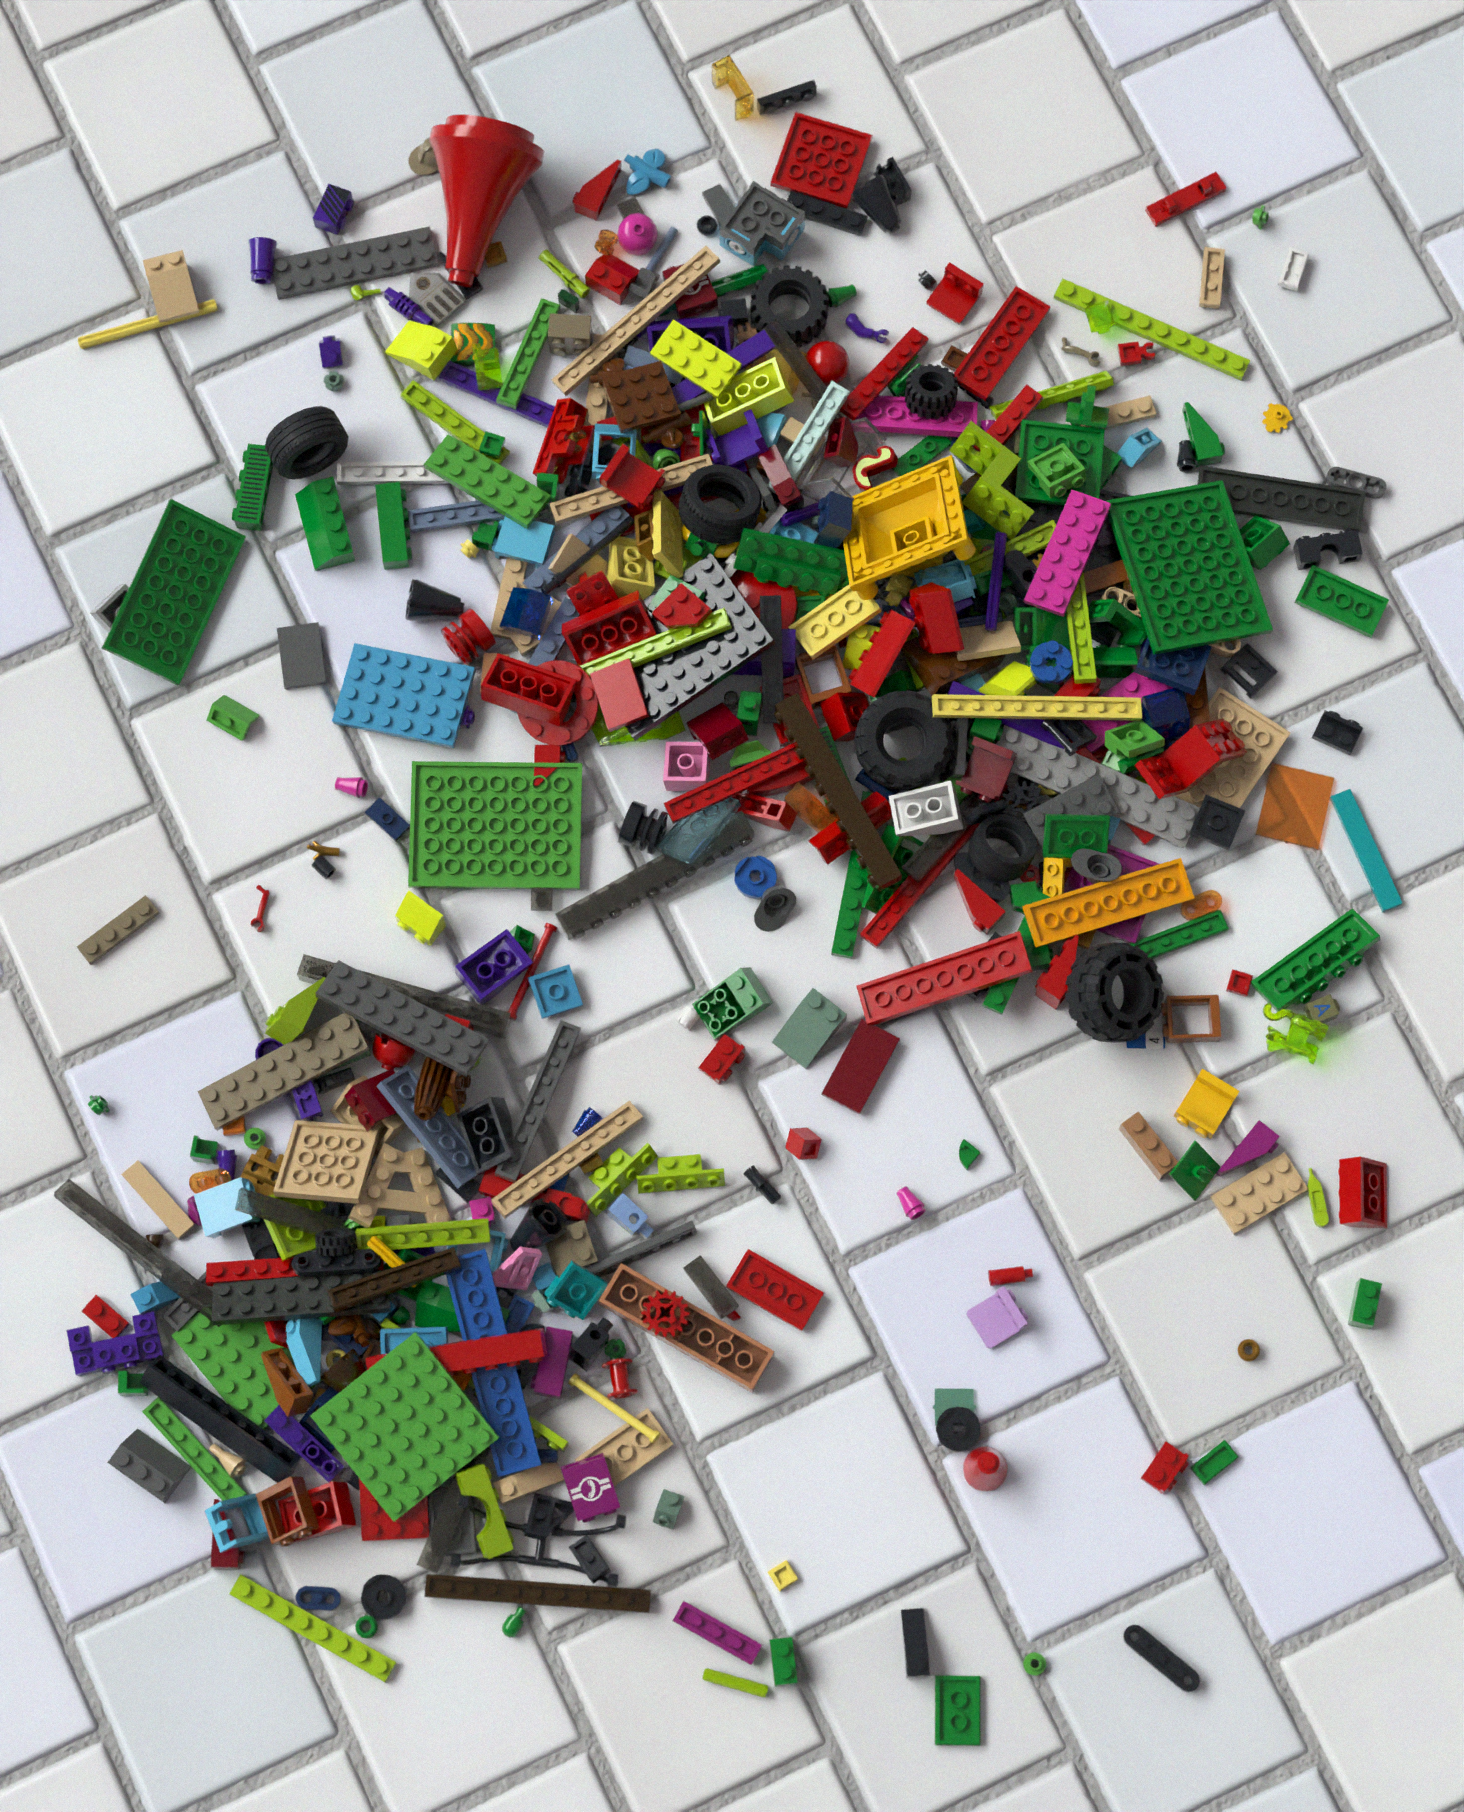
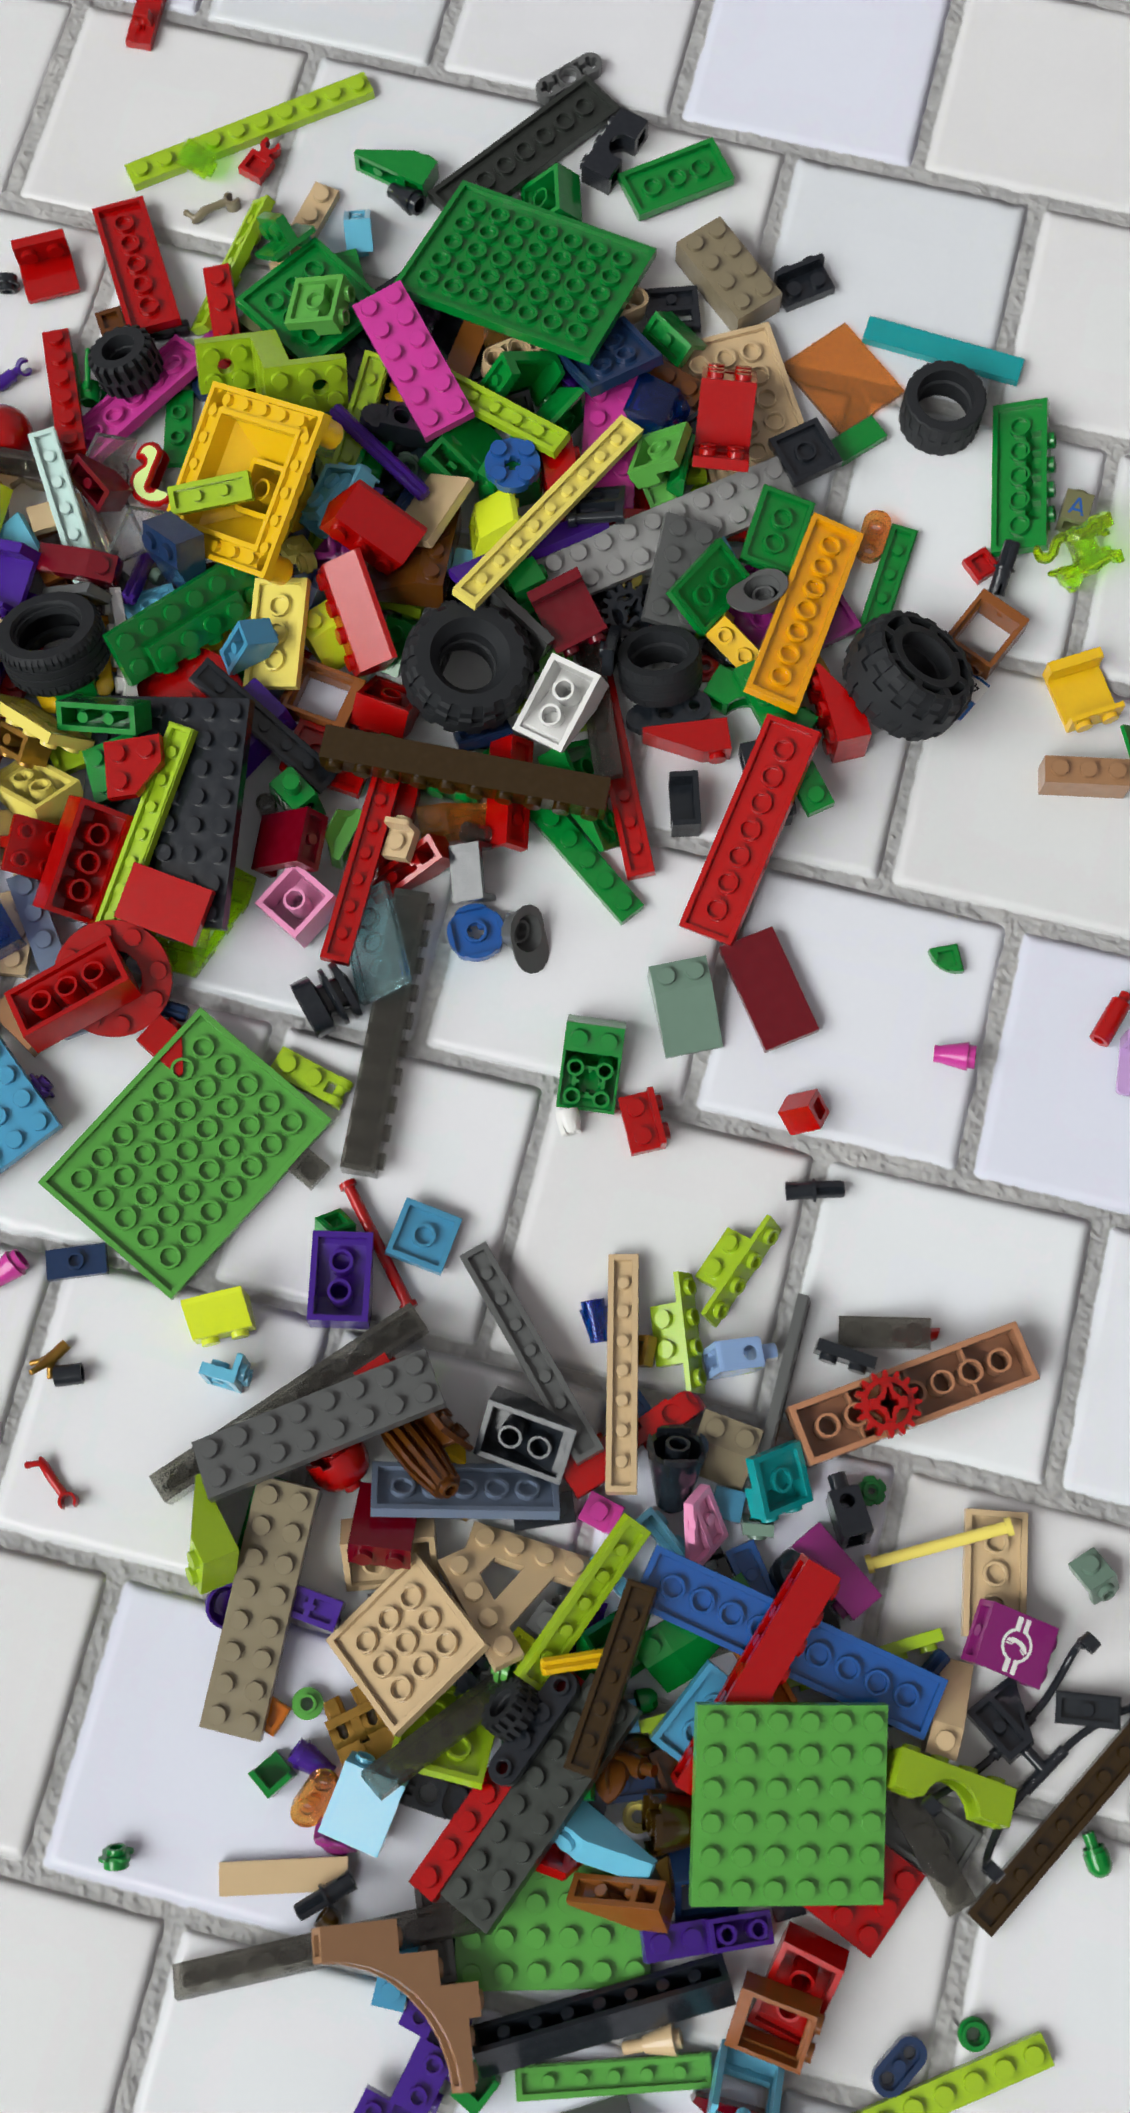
camera: 50 degrees left, 0 degrees up
(105, 1317) = (369, 2054): red plate -> none
(160, 1332) = (447, 2008): none -> medium nougat arch
(165, 1227) = (325, 1895): none -> black axle
(339, 1079) = (320, 1552): black bar -> none
(371, 1592) = (939, 1998): black plate -> none
(393, 955) = (222, 1376): none -> medium azure bracket
(594, 856) = (311, 1077): none -> lime plate
(619, 1378) = (910, 1512): red hose -> none
(681, 1285) = (832, 1353): none -> black plate
(698, 569) = (104, 715): none -> green brick
(770, 790) = (400, 839): none -> tan bracket
(774, 1290) = (939, 1268): red plate -> none
(783, 843) = (468, 873): none -> panel
(811, 828) = (475, 832): none -> clear smoke hinge
(812, 610) = (248, 644): none -> dark azure slope
(883, 512) = (211, 493): none -> lime plate
(933, 930) = (684, 803): none -> black panel
(1149, 845) = (776, 530): none -> green tile
(1211, 277) = (250, 40): tan plate -> none
(1227, 686) = (672, 337): none -> green panel
(1245, 996) = (1004, 567): none -> black axle
(1258, 846) = (859, 439): none -> green tile
(1276, 417) = (441, 95): yellow piece -> none
(1300, 685) = (728, 276): none -> dark tan brick
(1329, 856) = (946, 380): none -> black tyre

